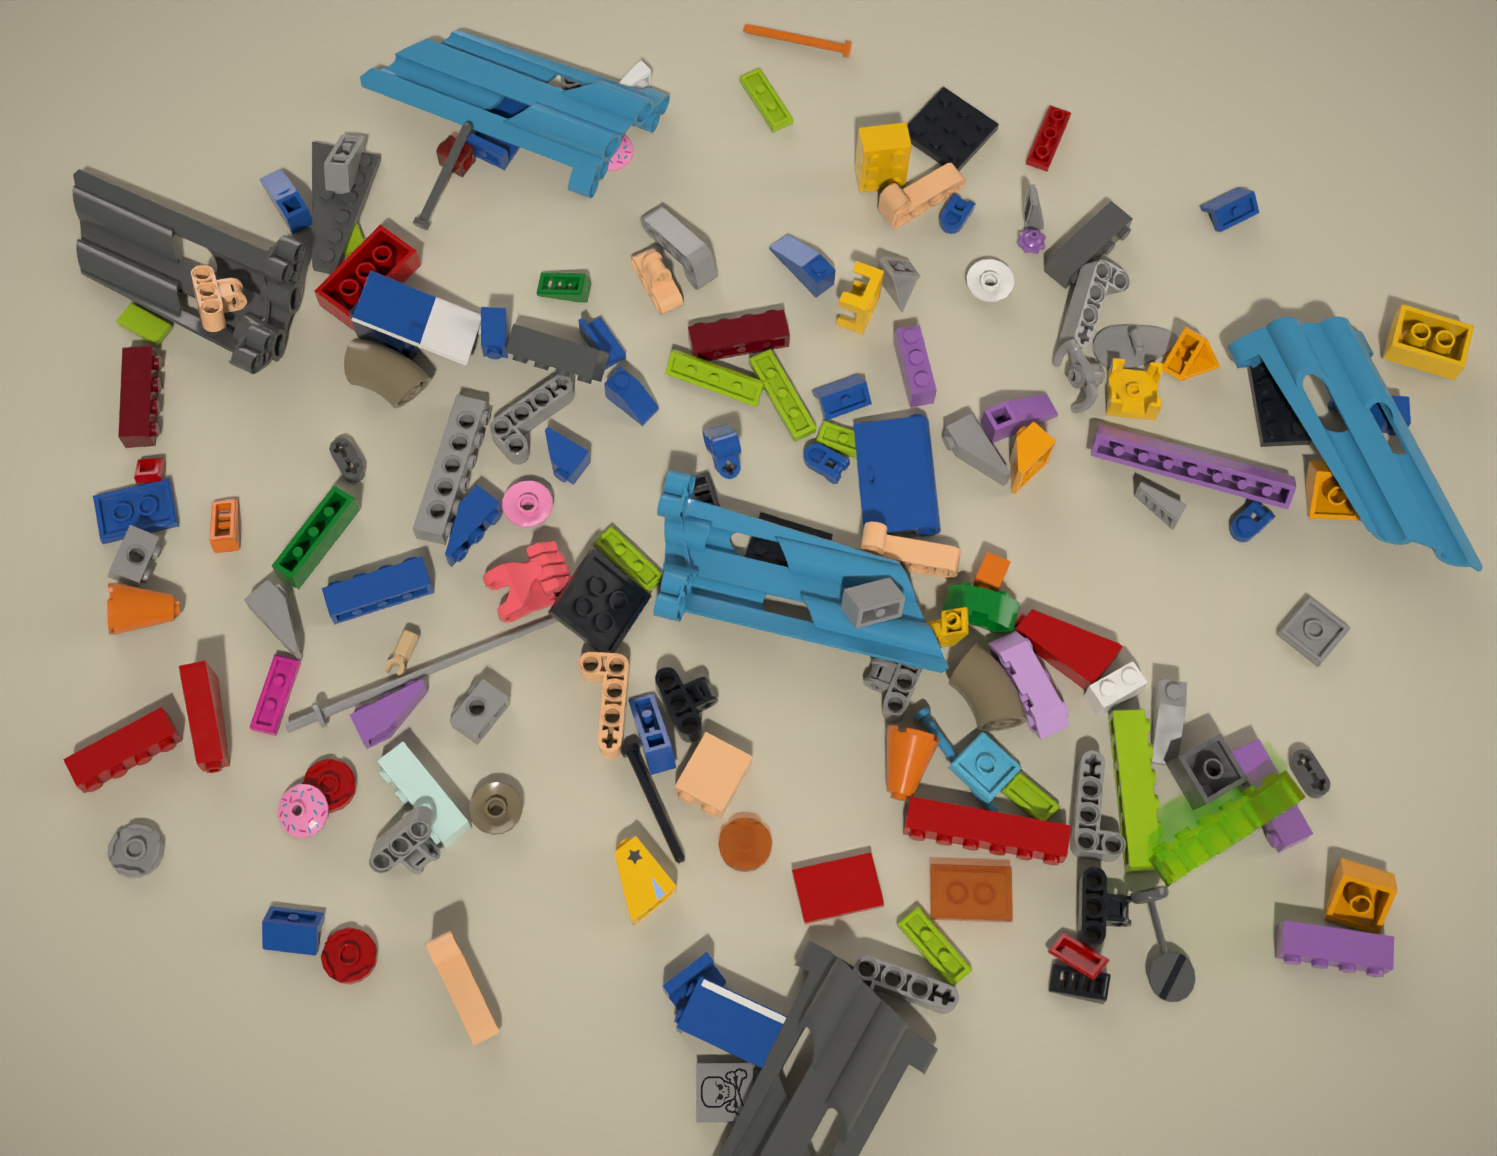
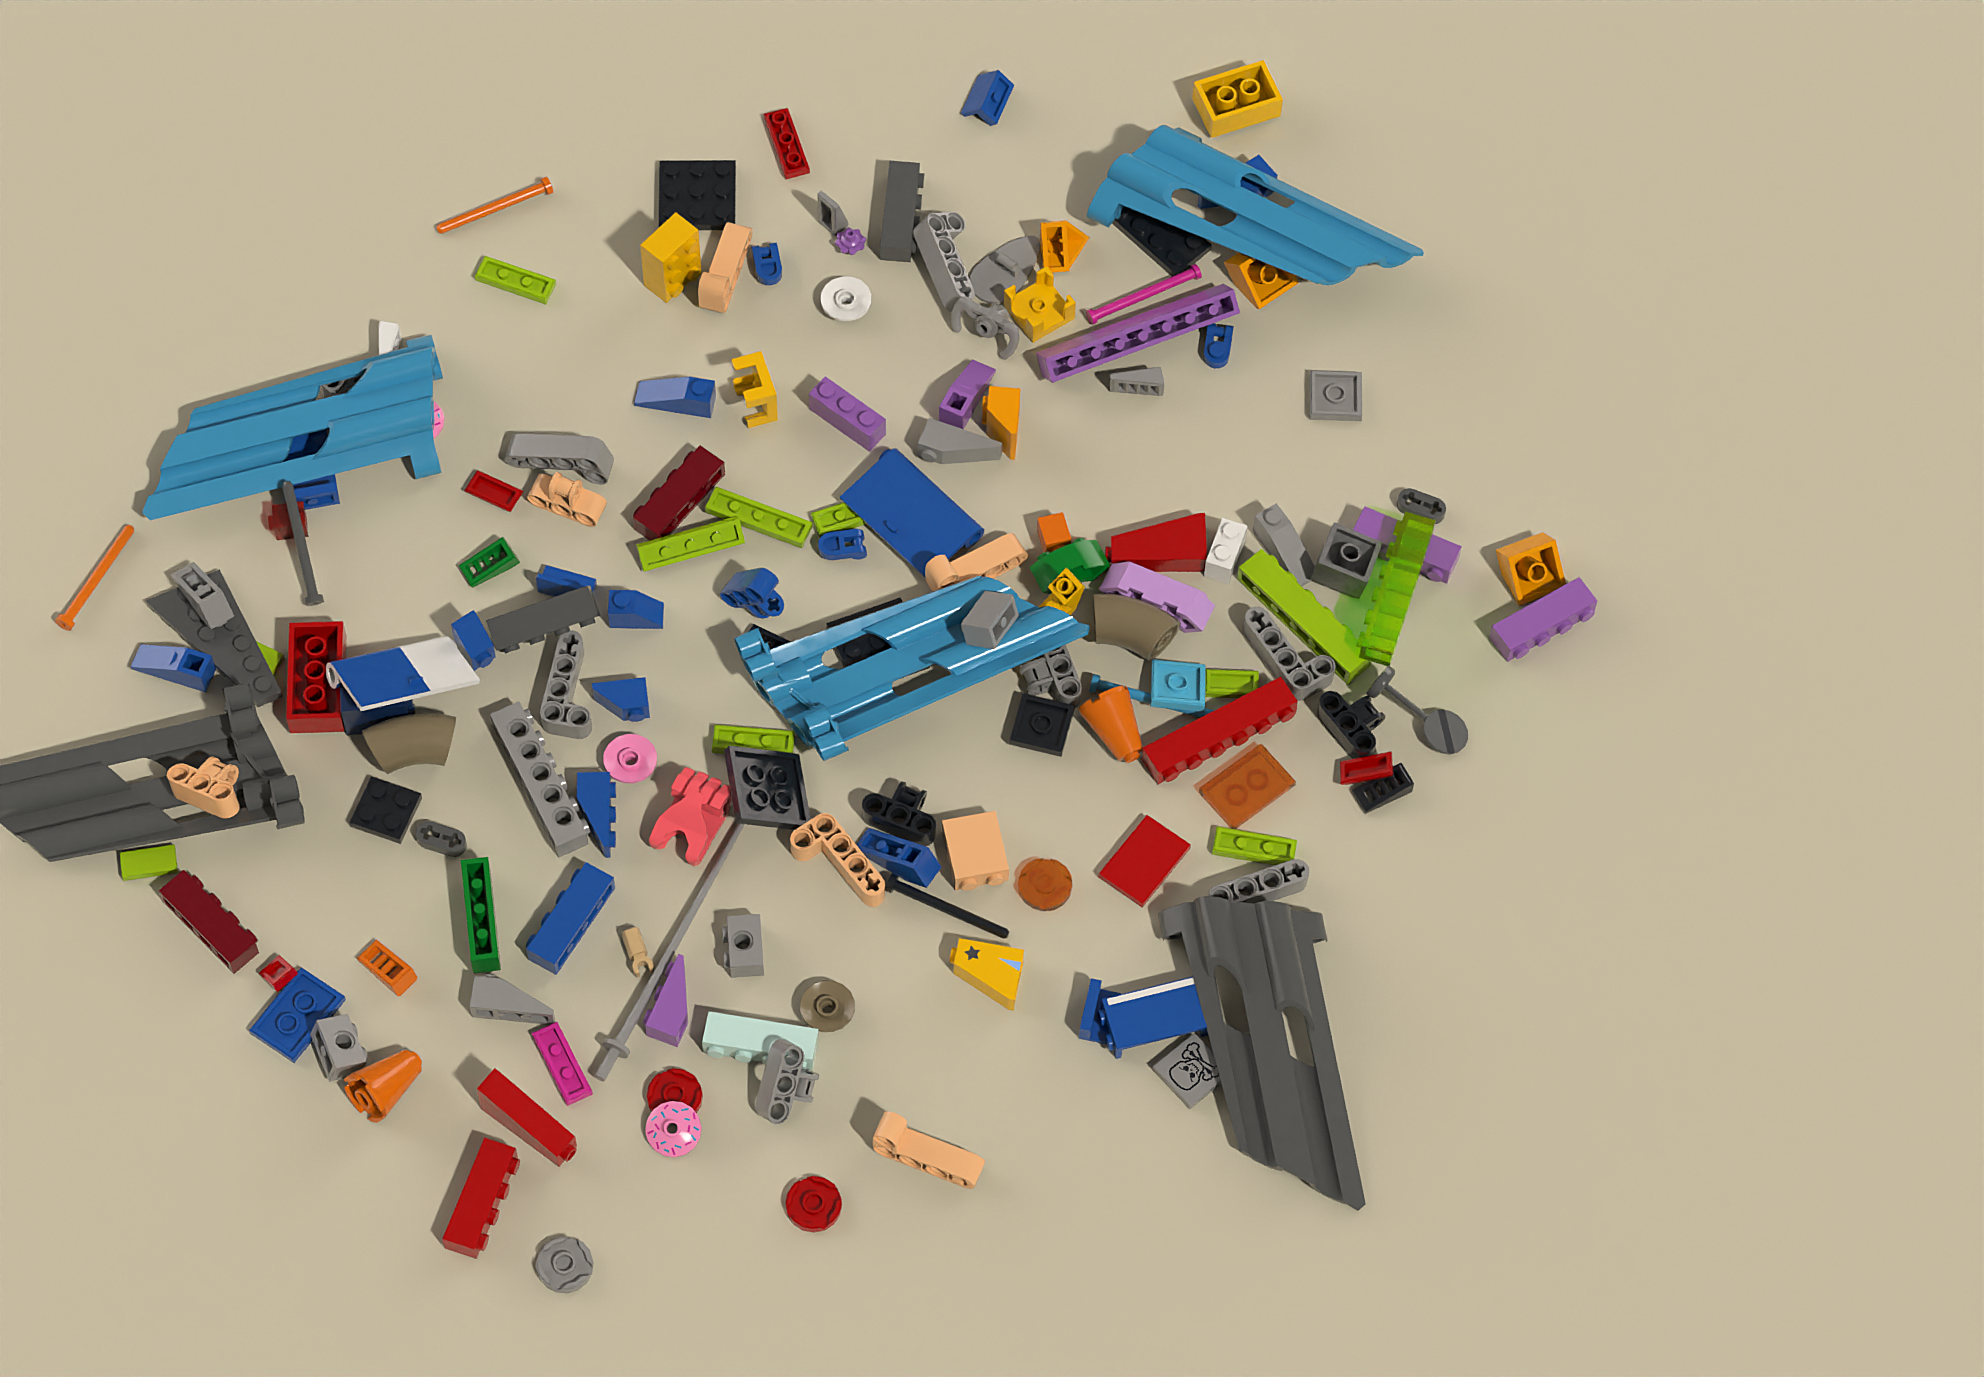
camera: 40 degrees left, 5 degrees down
(291, 930) = (752, 1220): blue panel -> none
(296, 102) = (66, 621): none -> orange bar
(331, 410) = (385, 810): none -> black plate
(613, 237) = (493, 491): none -> red tile
(842, 396) = (808, 481): blue panel -> none
(852, 716) = (1042, 725): none -> black plate
(898, 278) = (772, 352): light grey slope -> none
(1171, 428) = (1193, 273): none -> dark pink bar

